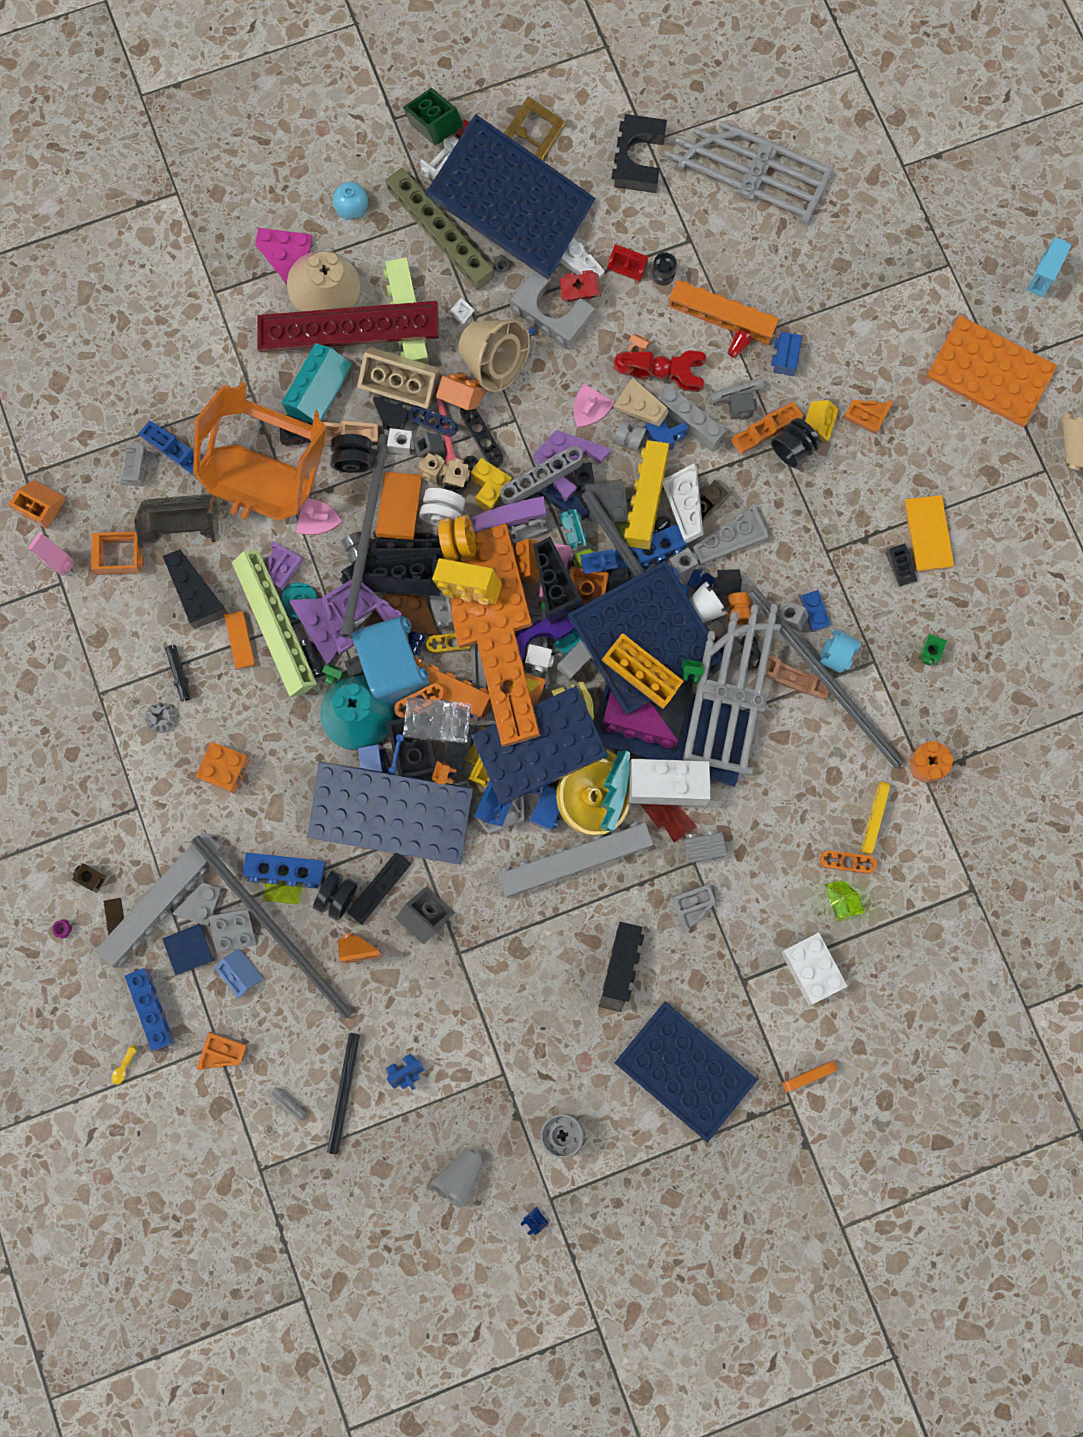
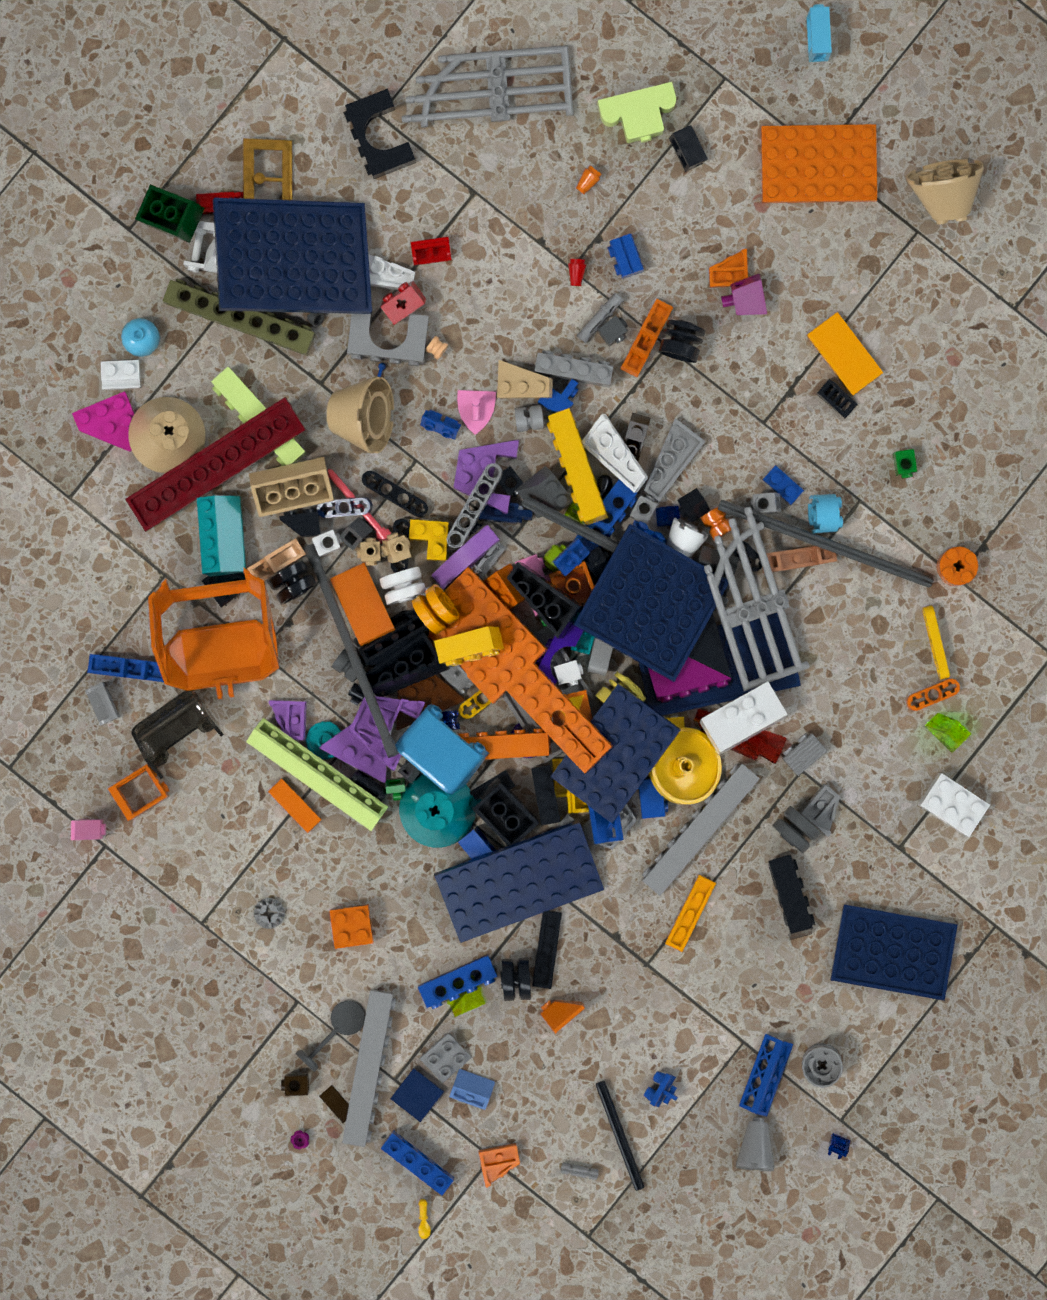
camera: 25 degrees left, 10 degrees up
(37, 503) = (40, 787): orange slope -> none
(167, 848) = (346, 1019): none -> dark grey piece
(180, 680) = (259, 865): black pin -> none
(195, 595) = (232, 789): black wedge -> none
(199, 904) = (403, 1052): light grey wing -> none
(271, 927) = (477, 1036): dark grey axle -> none
(316, 221) = (120, 374): none -> white plate
(316, 518) = (294, 655): bright pink shield -> none
(399, 738) = (491, 815): blue hinge -> none
(424, 915) = (600, 950): dark grey slope -> none
(430, 689) = (489, 761): orange beam -> none
(437, 720) = (516, 783): clear slope -> none
(441, 772) = (545, 825): orange tile -> none
(460, 390) = (353, 466): orange slope -> none
(461, 311) = (306, 386): white tile -> none
(508, 1119) = (769, 1077): none -> blue fence
(523, 930) = (690, 913): none -> light orange tile
(548, 396) = (432, 422): none -> blue hinge
(577, 535) = (535, 539): teal hinge -> none
(586, 339) = (436, 347): none -> light nougat wheel
(617, 785) = (699, 744): teal slope -> none
(639, 341) = (486, 321): orange tile -> none
(642, 670) = (667, 638): light orange brick -> none
(662, 907) = (794, 832): none -> dark grey wheel
(664, 268) = (468, 238): black wheel -> none
(677, 369) = (521, 336): red piece -> none
(692, 667) = (708, 607): green tile -> none
(722, 311) = (545, 249): orange brick -> none
(791, 278) = (588, 179): none -> orange cone
(810, 1076) = (999, 896): orange beam -> none
(821, 418) = (690, 302): yellow panel -> none
(863, 248) = (639, 111): none -> yellowish green brick
(871, 439) = (746, 297): none -> magenta torso
(887, 299) = (688, 148): none -> black hinge

